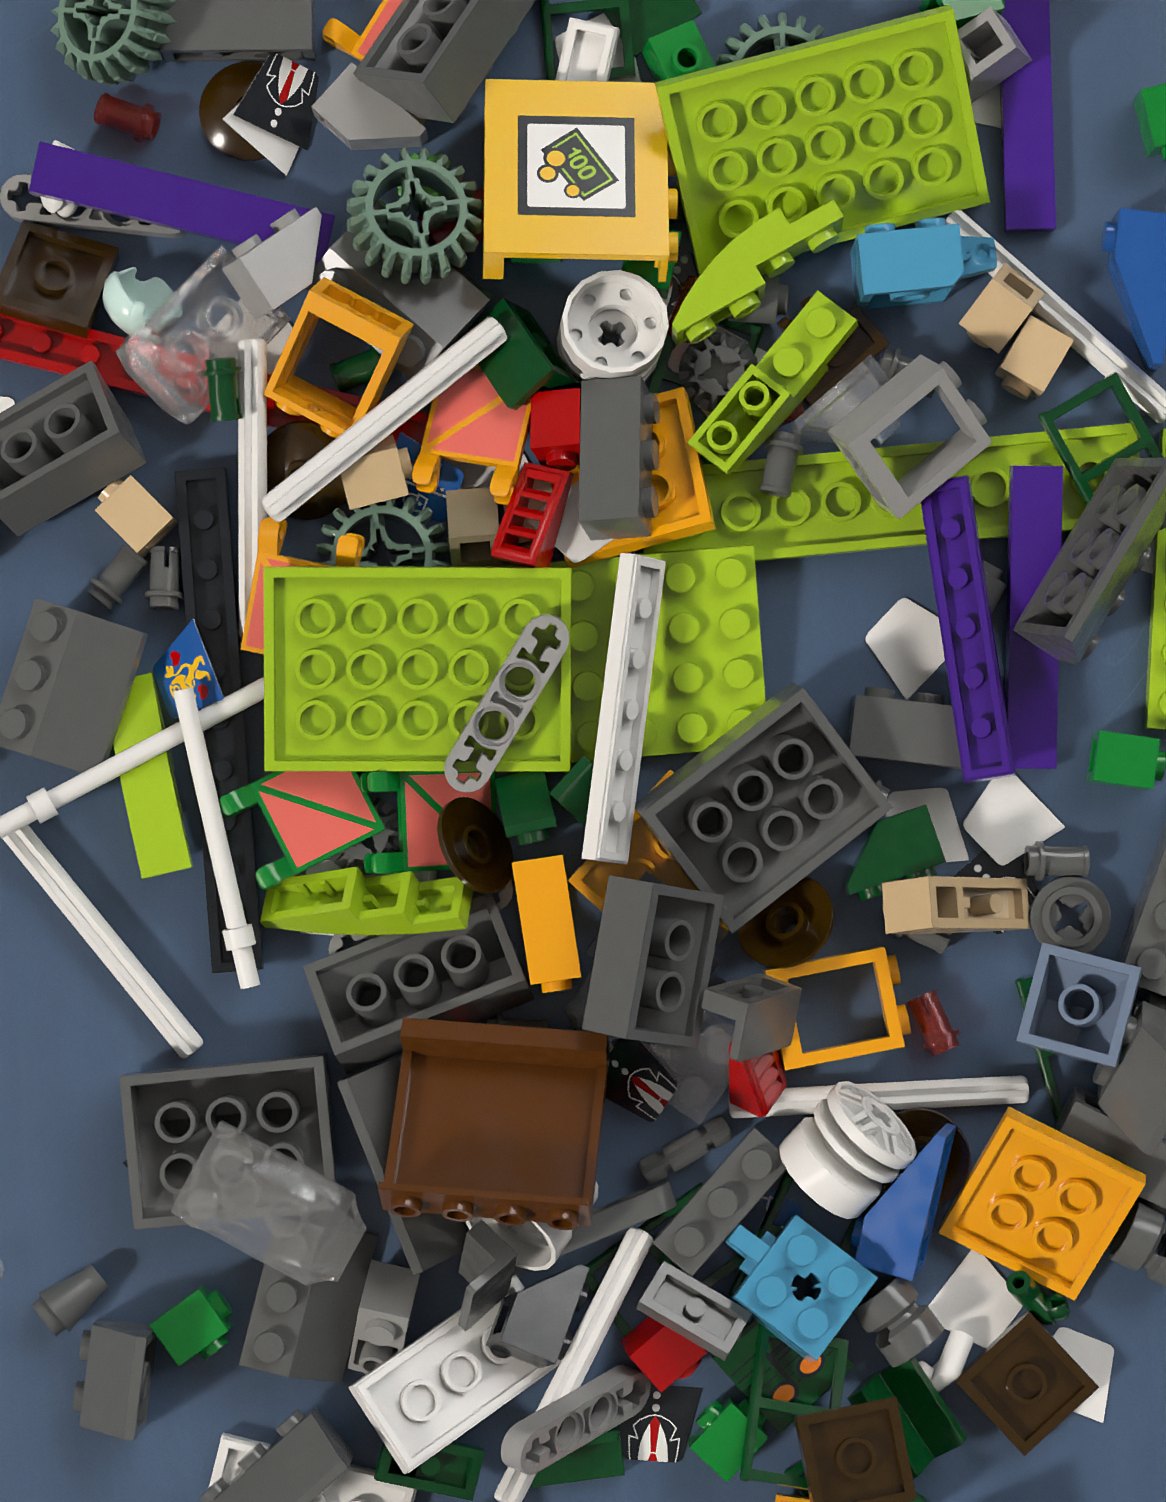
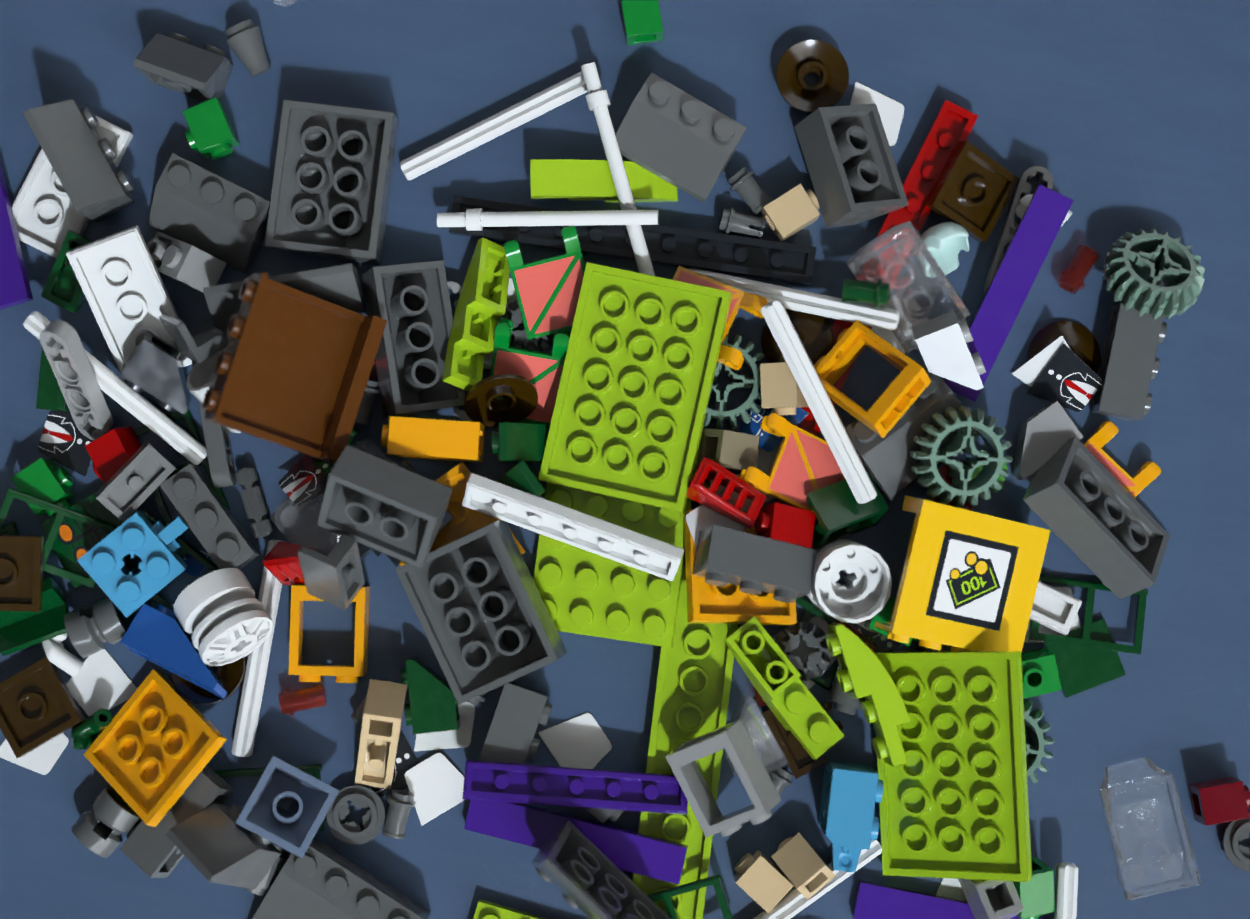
camera: 105 degrees right, 0 degrees up
(187, 666) = (673, 225): blue sticker -> none
(271, 1207) = (275, 198): clear slope -> none
(355, 369) = (860, 390): dark green pin -> none
(511, 705) = (598, 441): light grey beam -> none
(765, 934) = (385, 594): dark brown dish -> none
(780, 463) = (725, 680): dark grey pin -> none
(1125, 760) = (457, 880): green brick -> none

